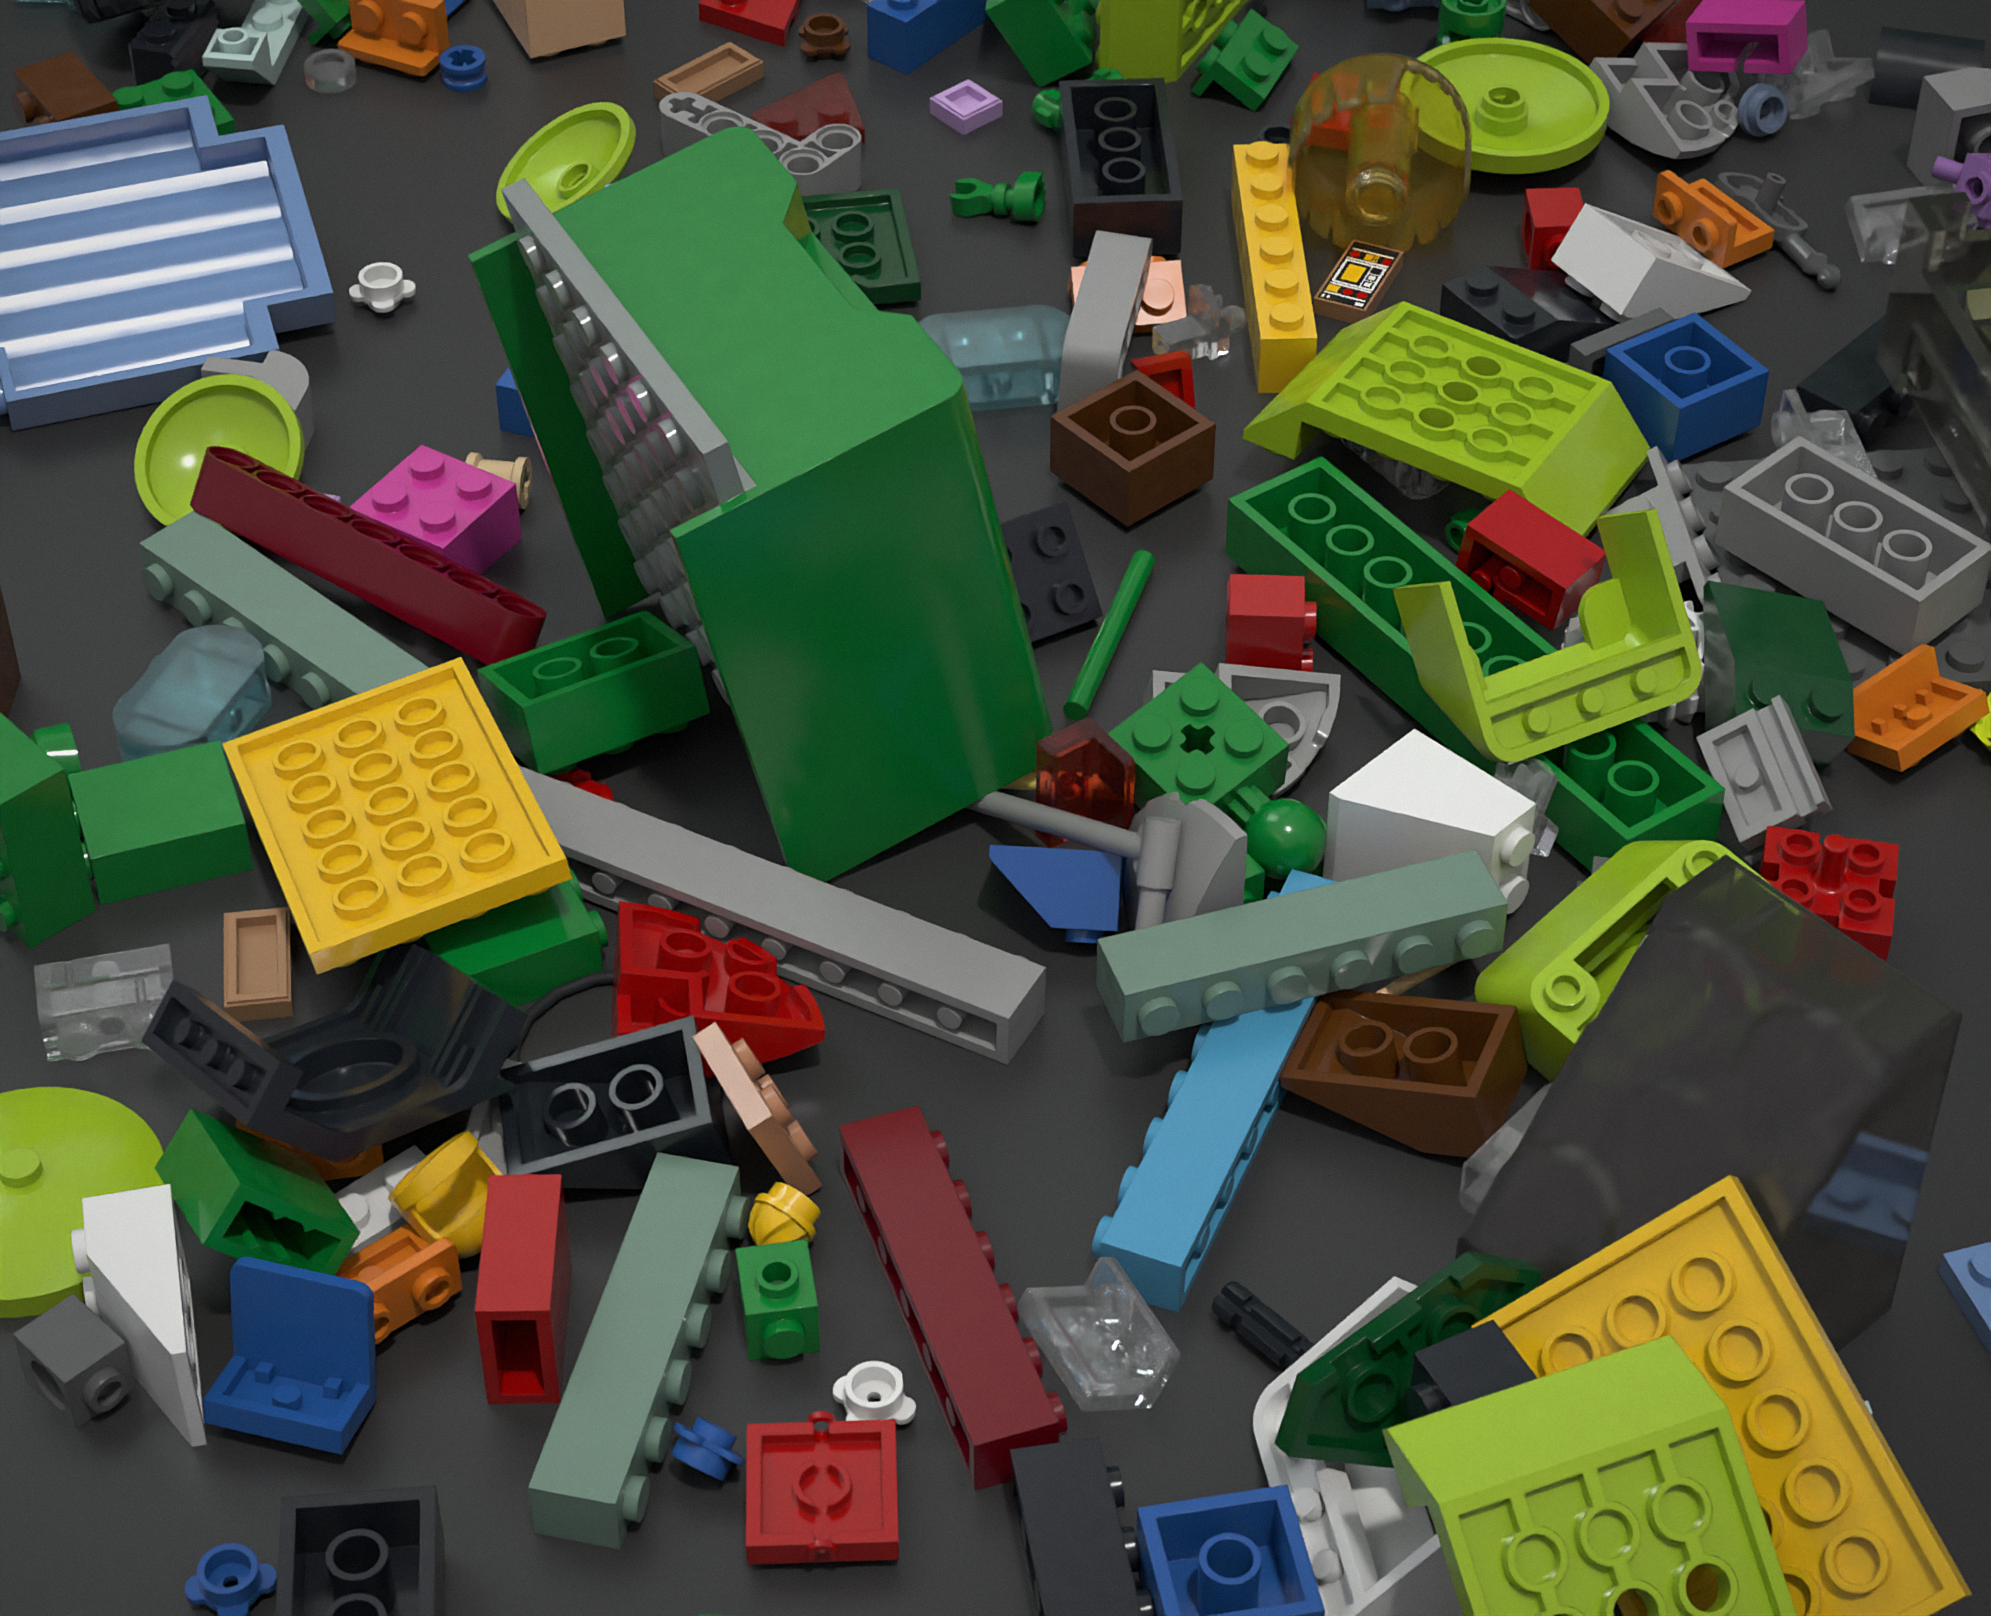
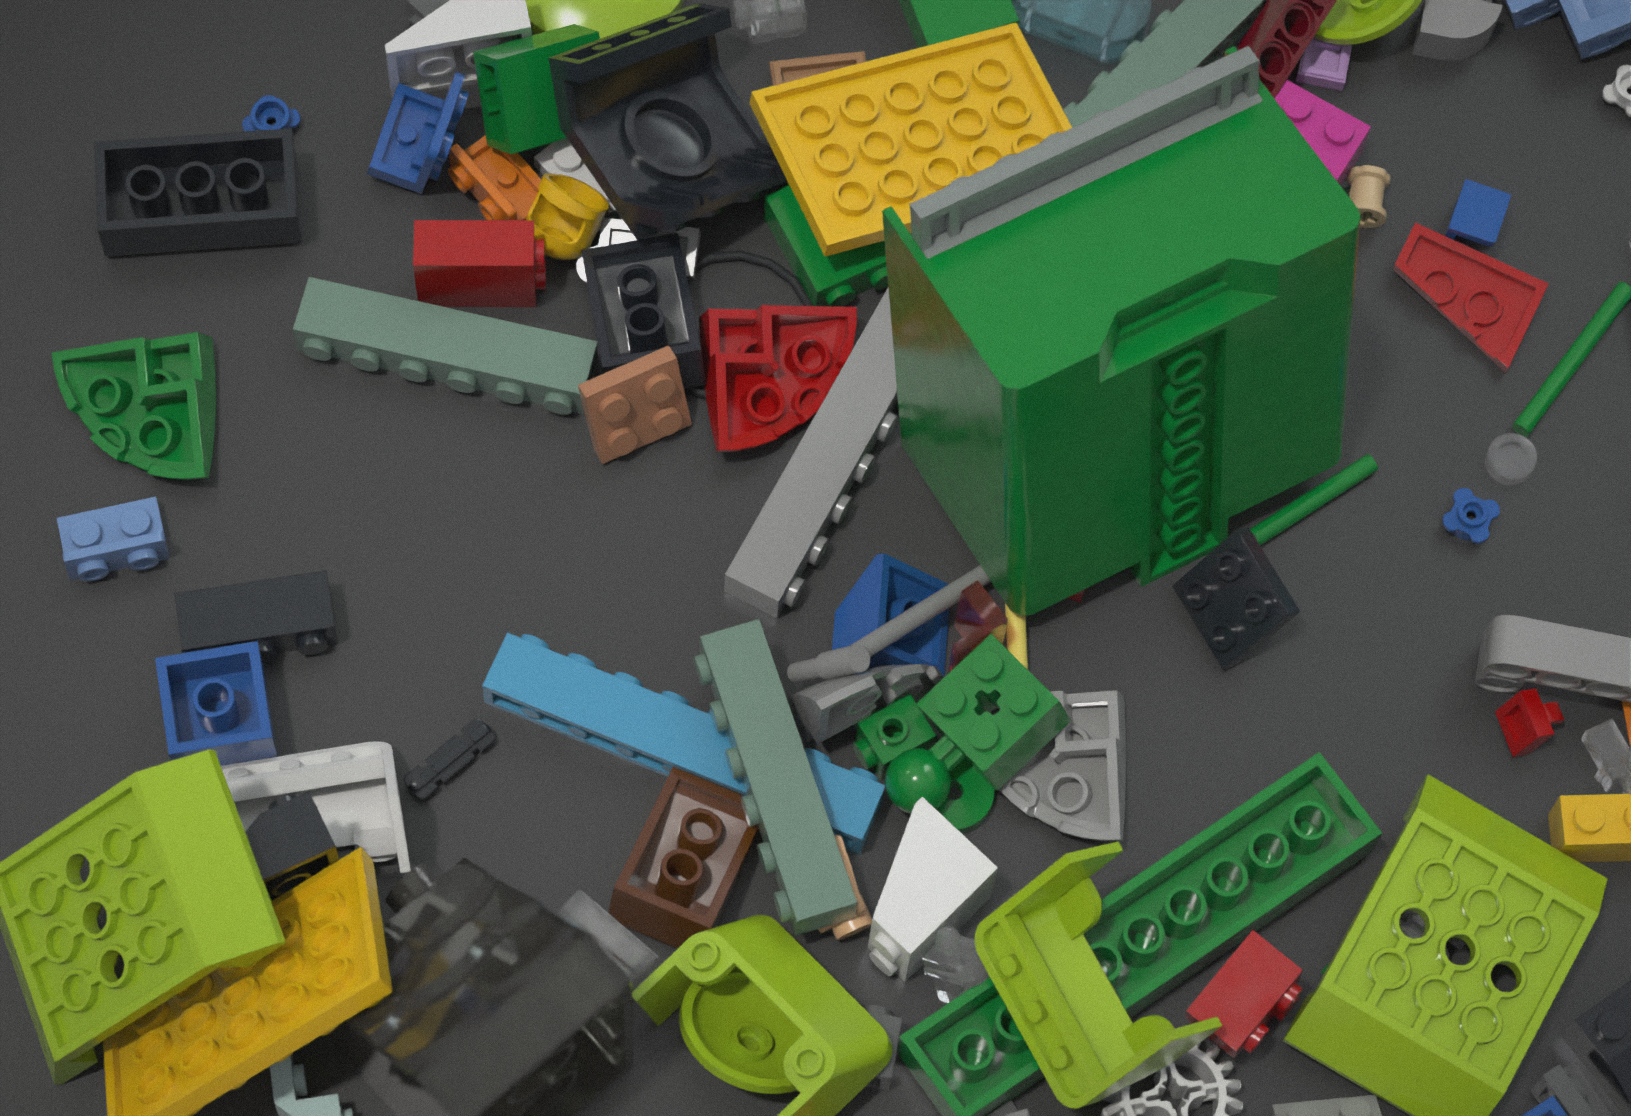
camera: 85 degrees right, 25 degrees up
(706, 1448) = (358, 391): blue plate -> none
(778, 1300) = (480, 431): green brick -> none
(782, 1216) = (558, 434): yellow plate -> none
(821, 1491) = (322, 464): red plate -> none
(874, 1382) = (397, 485): white plate -> none
(948, 1293) = (486, 540): dark red brick -> none
(1004, 353) = (1555, 569): clear light blue brick -> none
(1101, 1339) = (438, 637): clear bracket -> none
(1109, 635) = (1204, 675): green bar -> none
(1132, 447) = (1419, 688): reddish brown brick -> none
(1269, 622) = (1175, 785): red brick -> none
(1363, 1381) = (353, 810): dark green plate -> none

